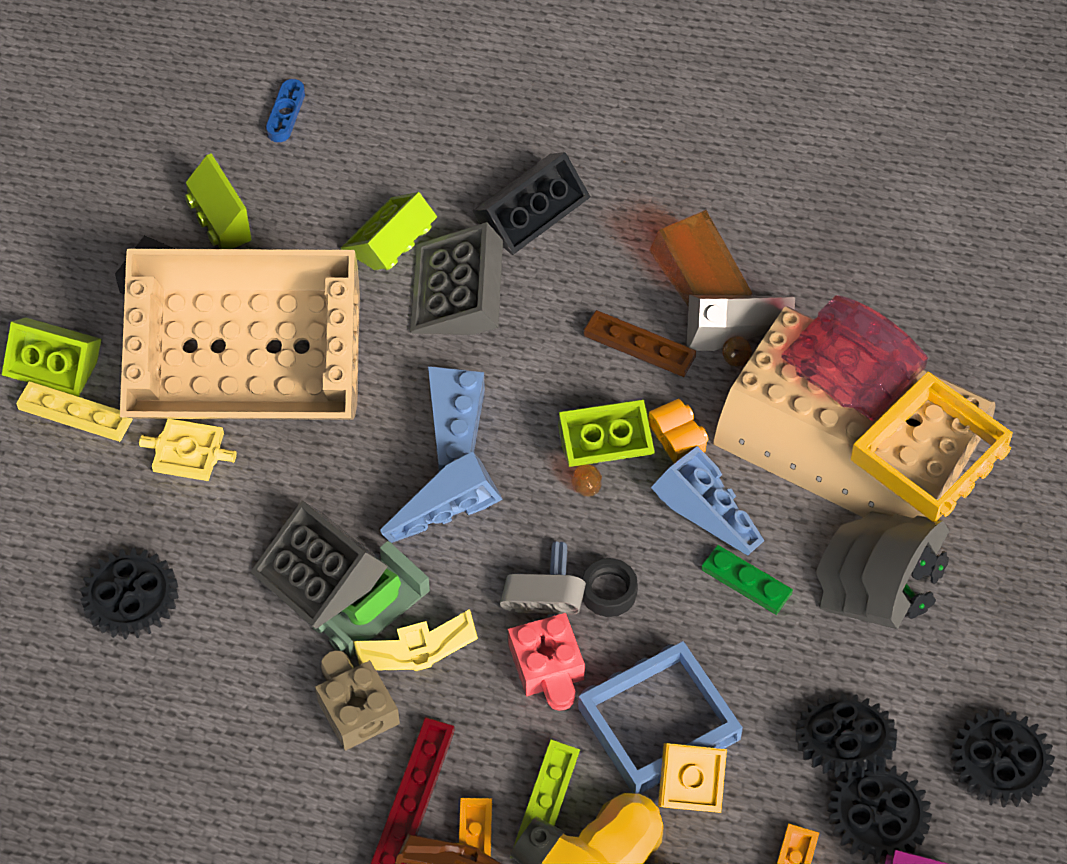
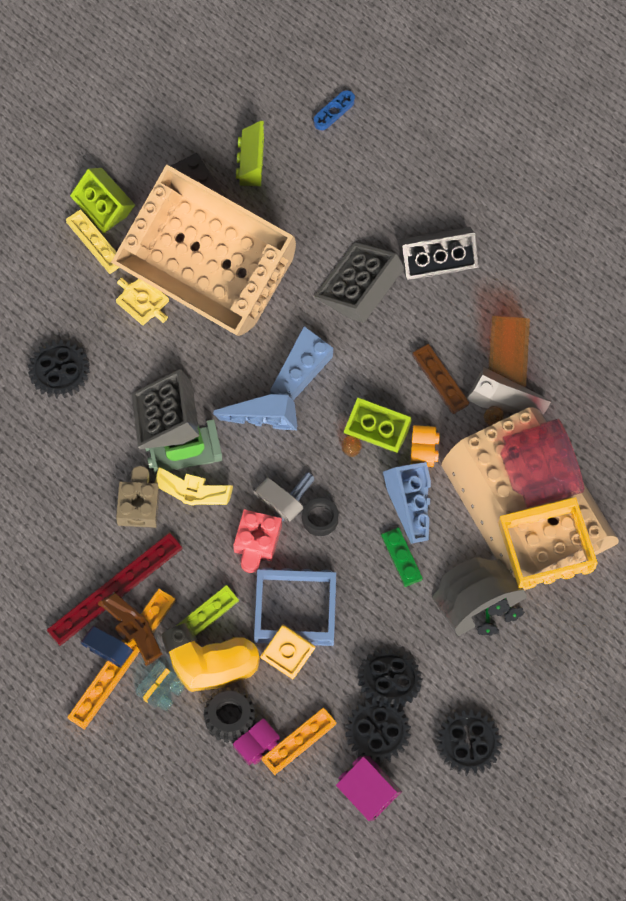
camera: 30 degrees right, 10 degrees up
(391, 231) = (342, 226): slope -> none

